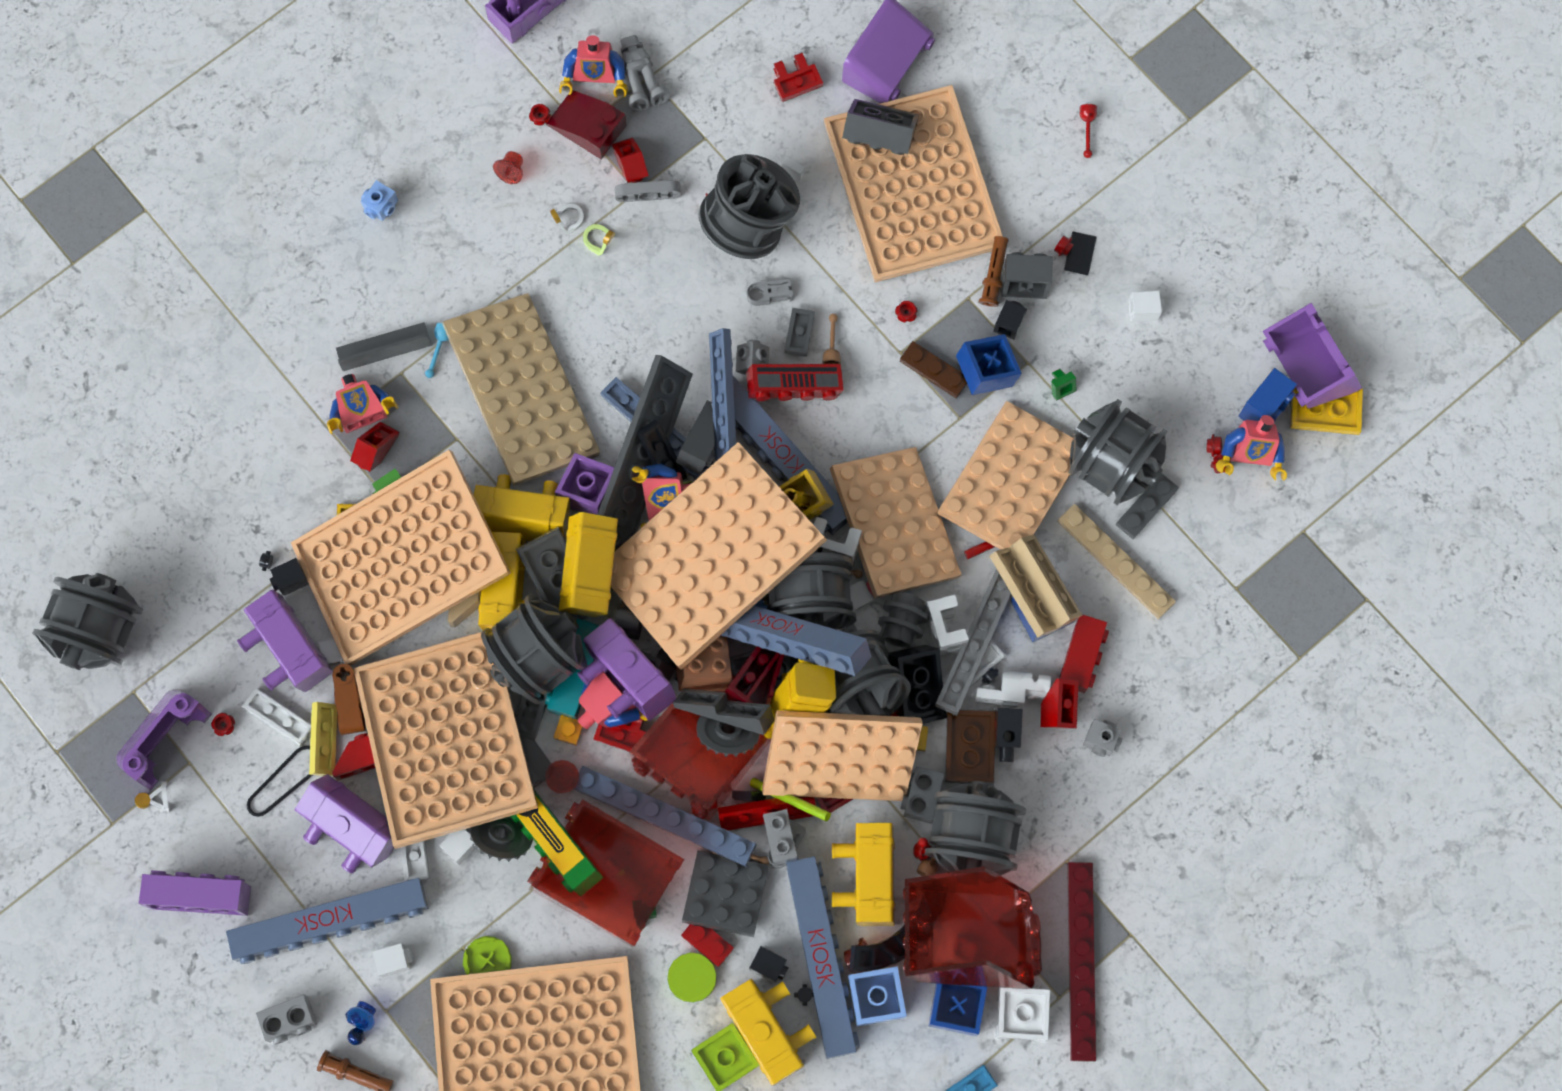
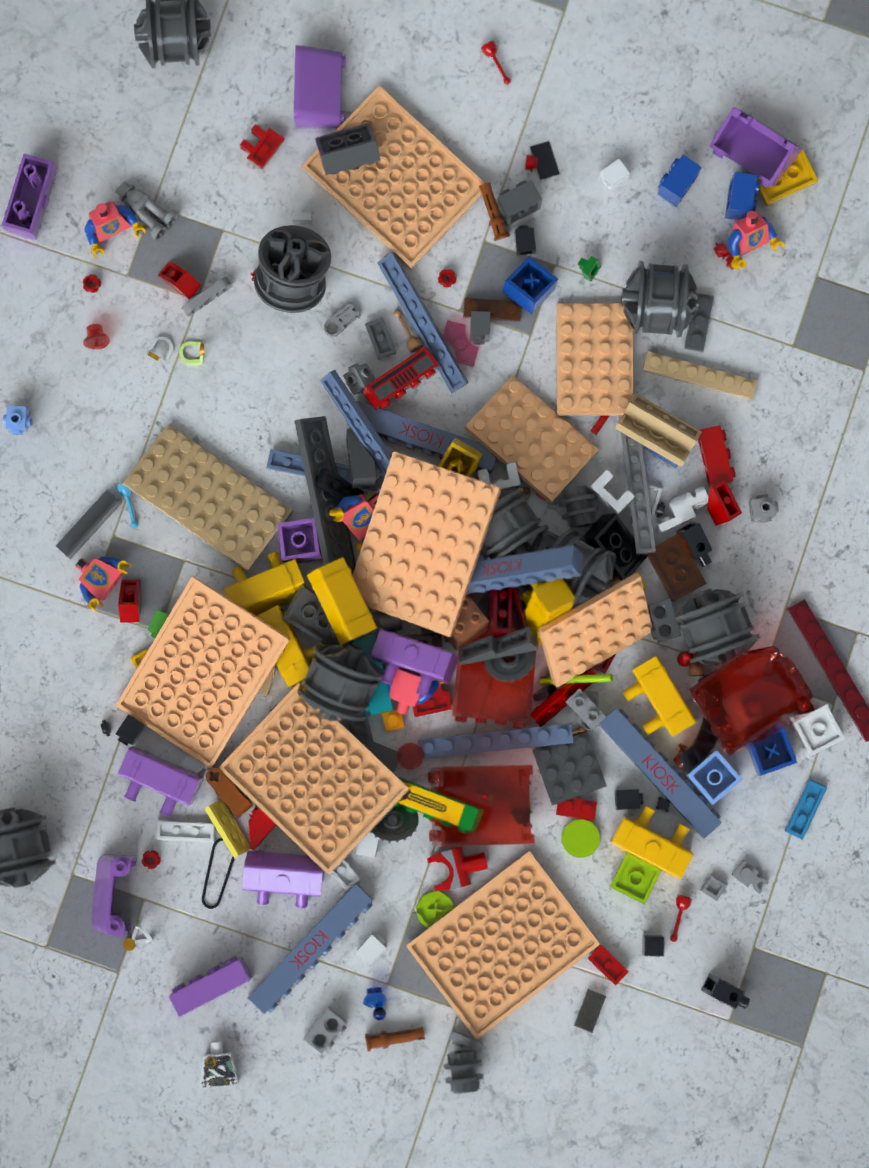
camera: 30 degrees left, 10 degrees up
(147, 990) = (218, 1068): none -> torso
(540, 928) = (459, 867): none -> red connector
(588, 122) = (130, 269): dark red slope -> none
(853, 341) = (422, 322): none -> sand blue plate
(880, 373) = (465, 351): none -> clear pink tile
(909, 376) = (480, 327): none -> dark grey brick
(1210, 347) = (679, 180): none -> blue brick

